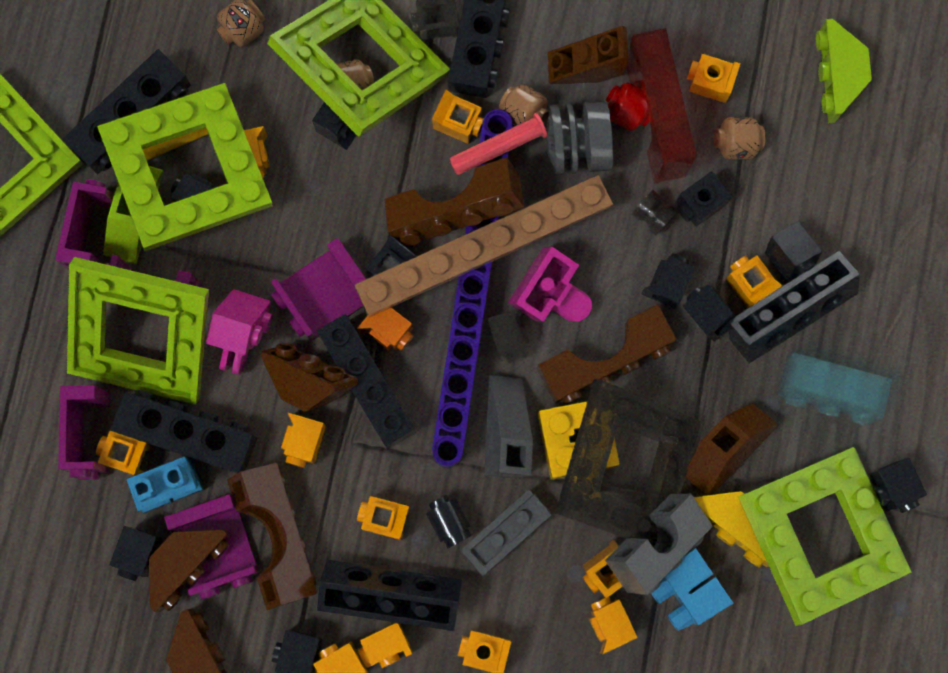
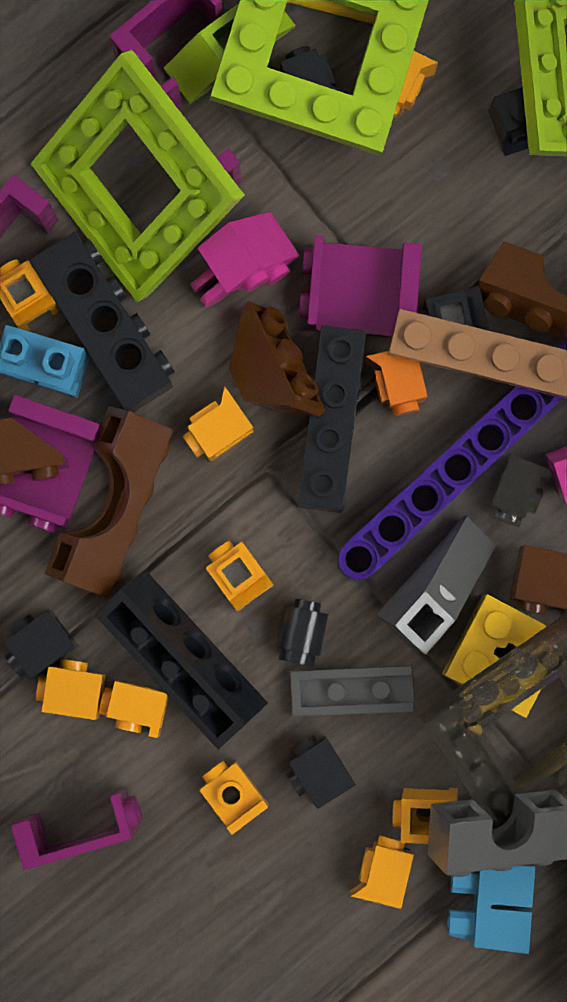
camera: 35 degrees right, 5 degrees up
(524, 596) = (318, 771): none -> black brick

